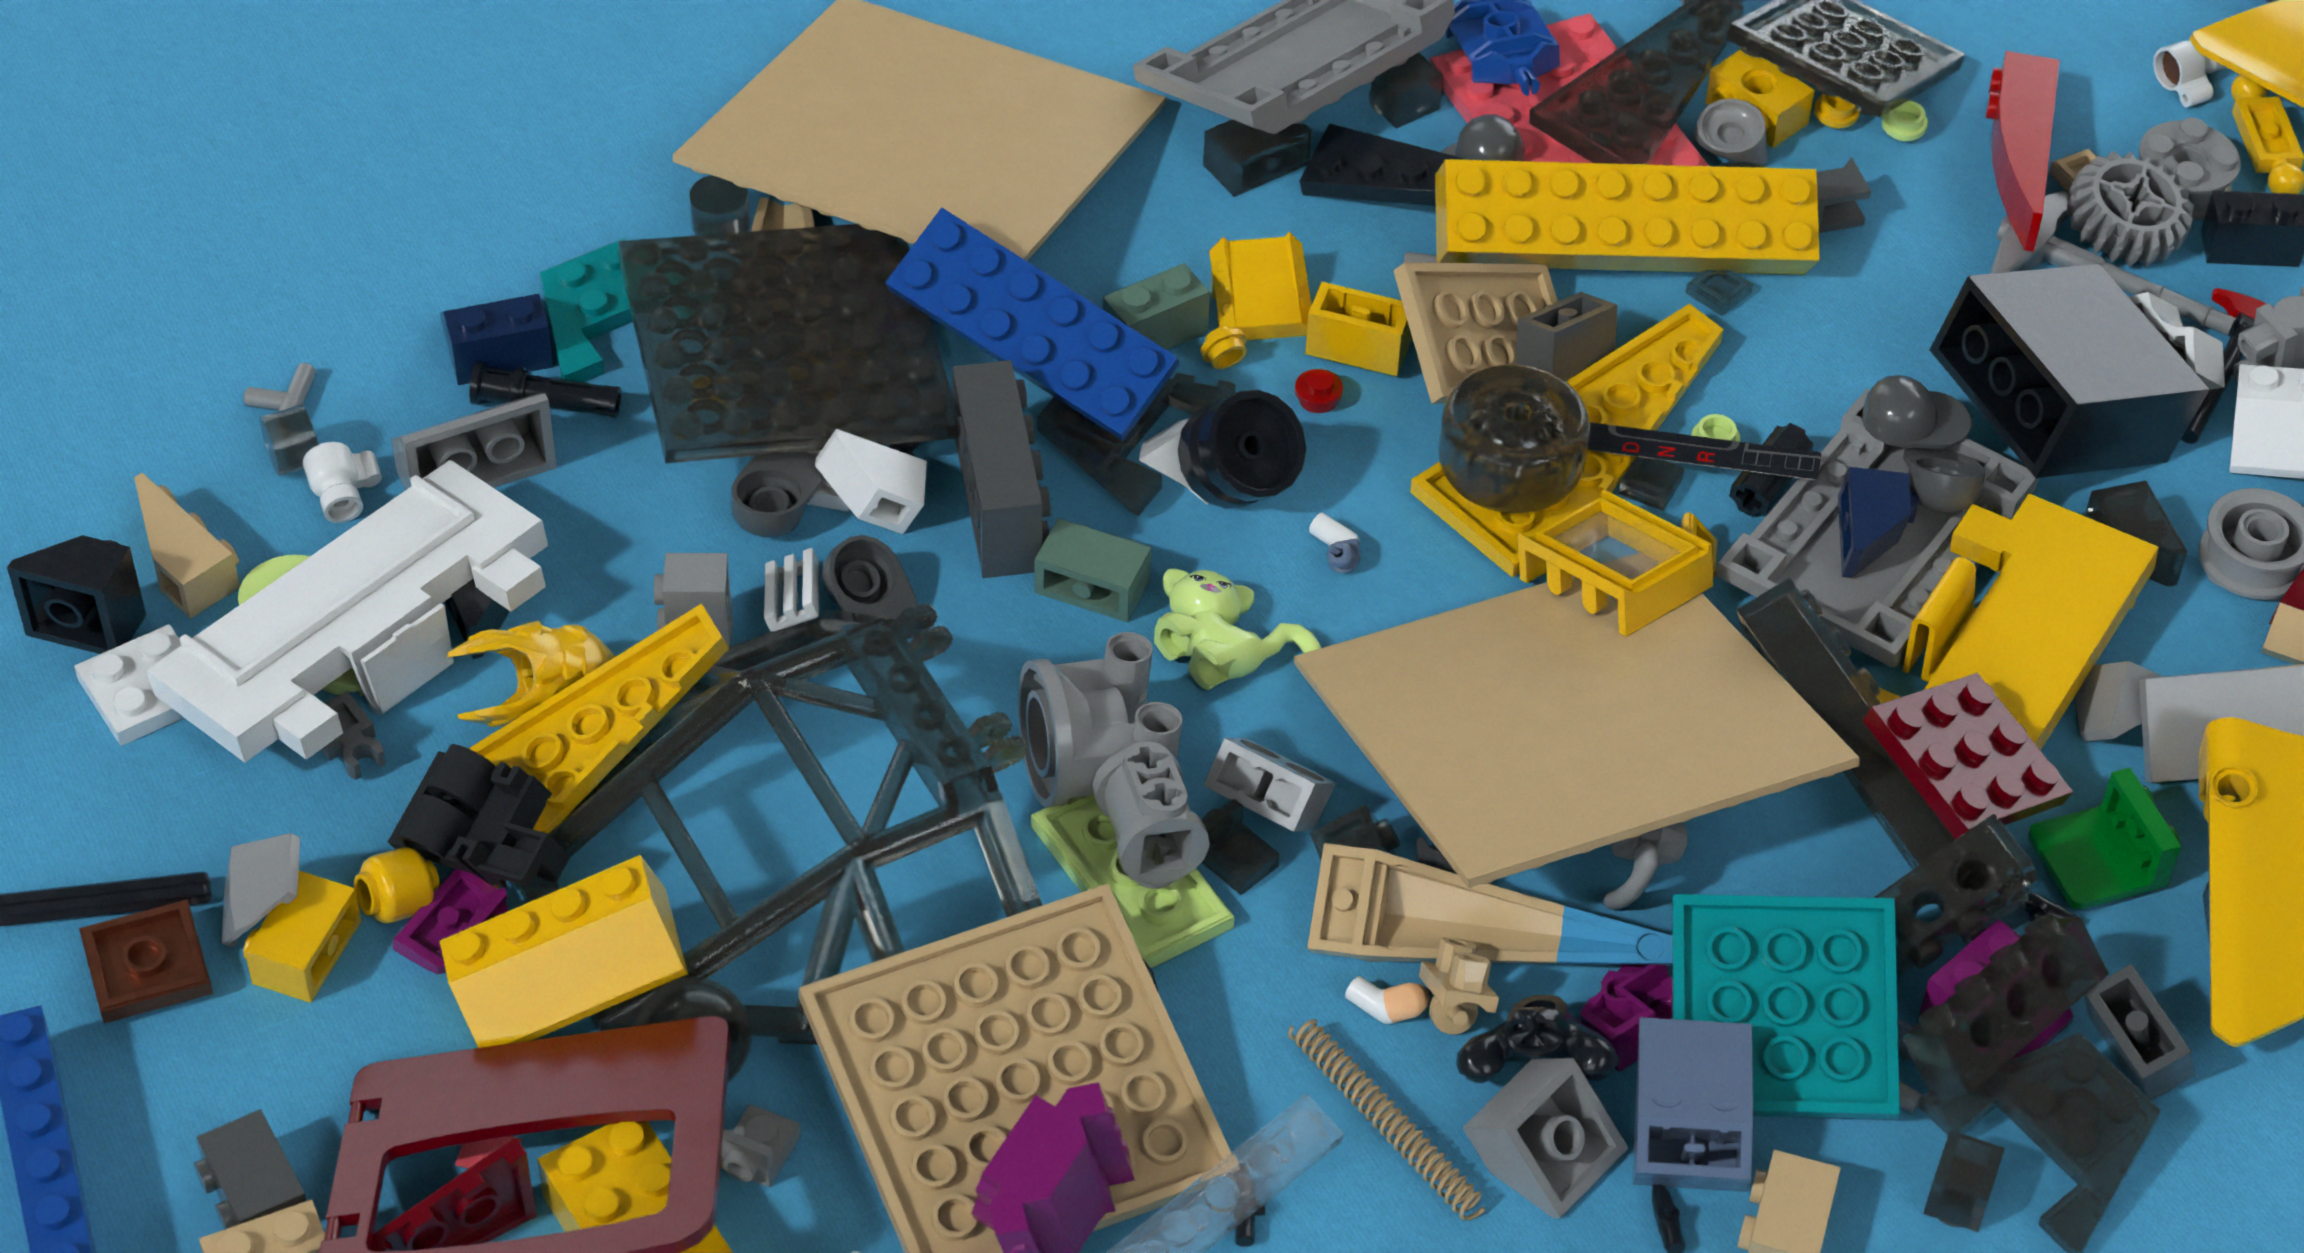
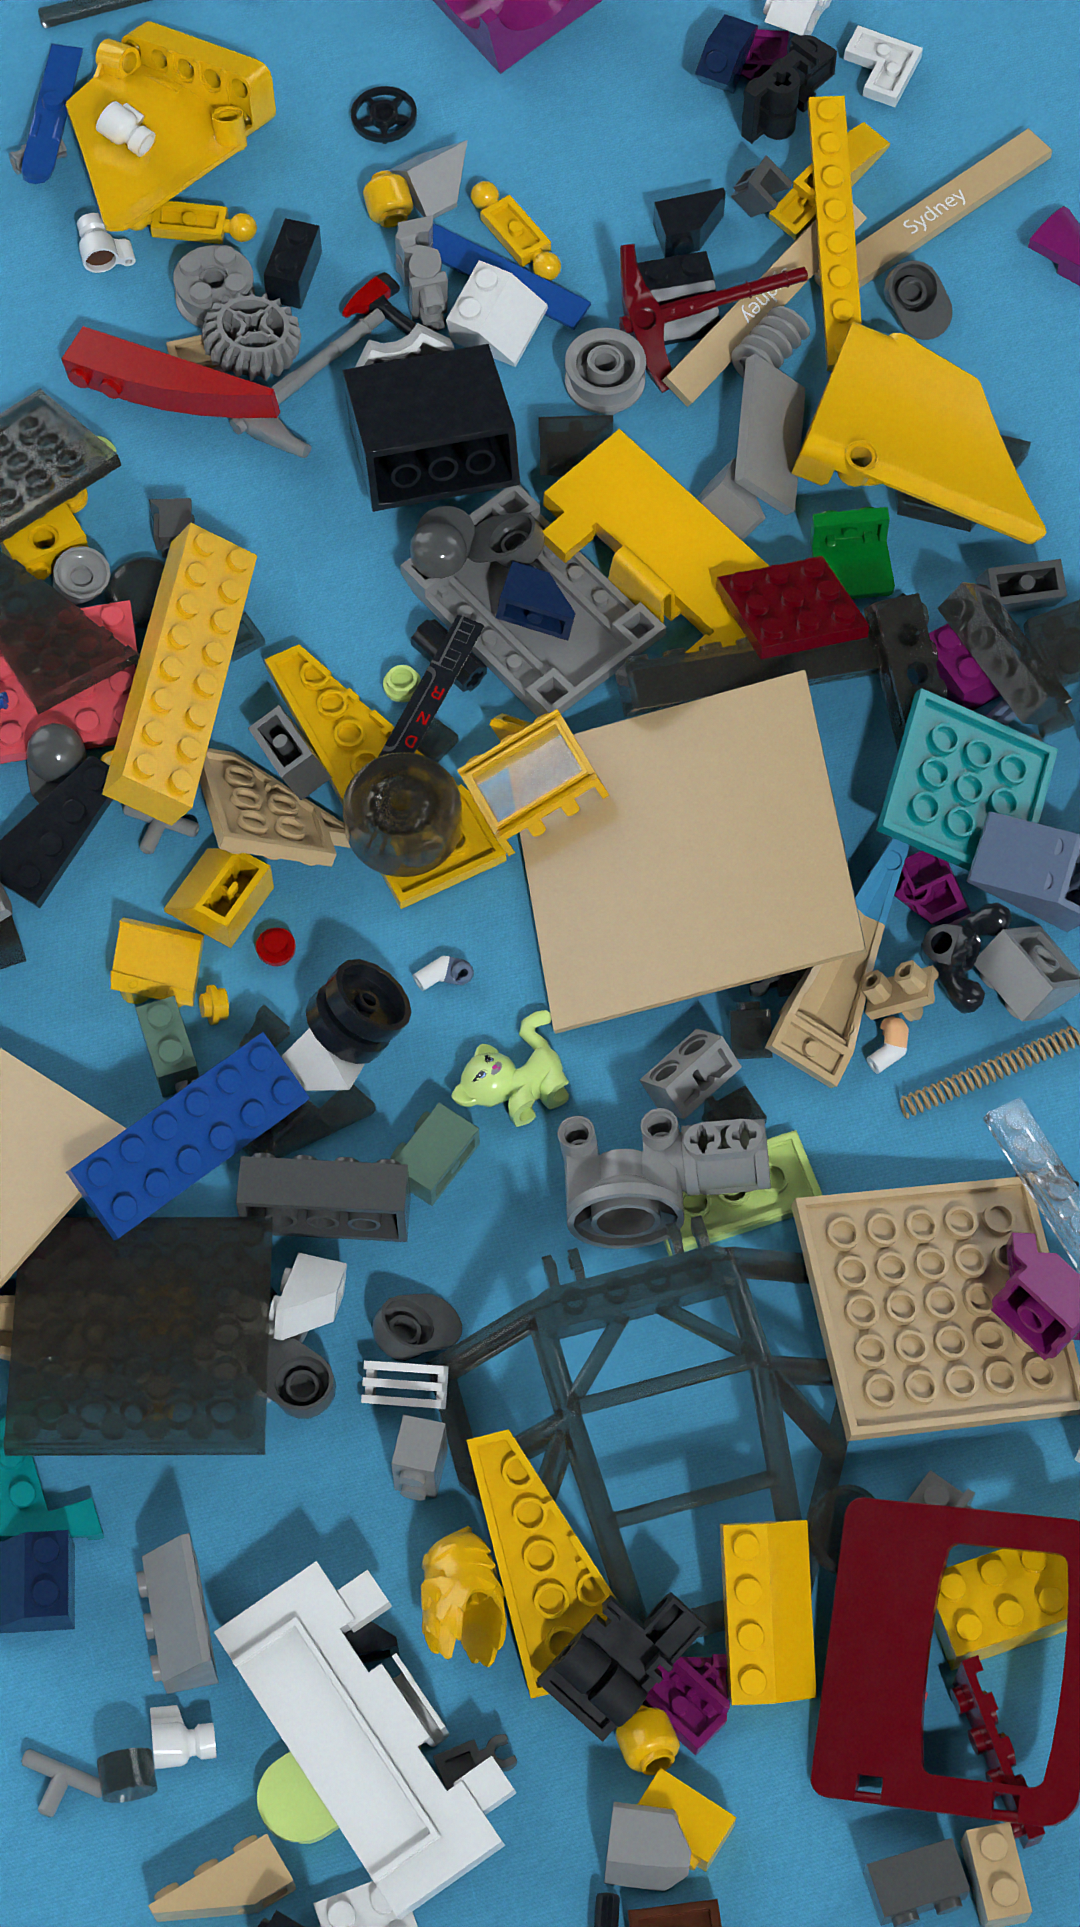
camera: 75 degrees left, 15 degrees up
(569, 395) = (109, 1569): black pin -> none

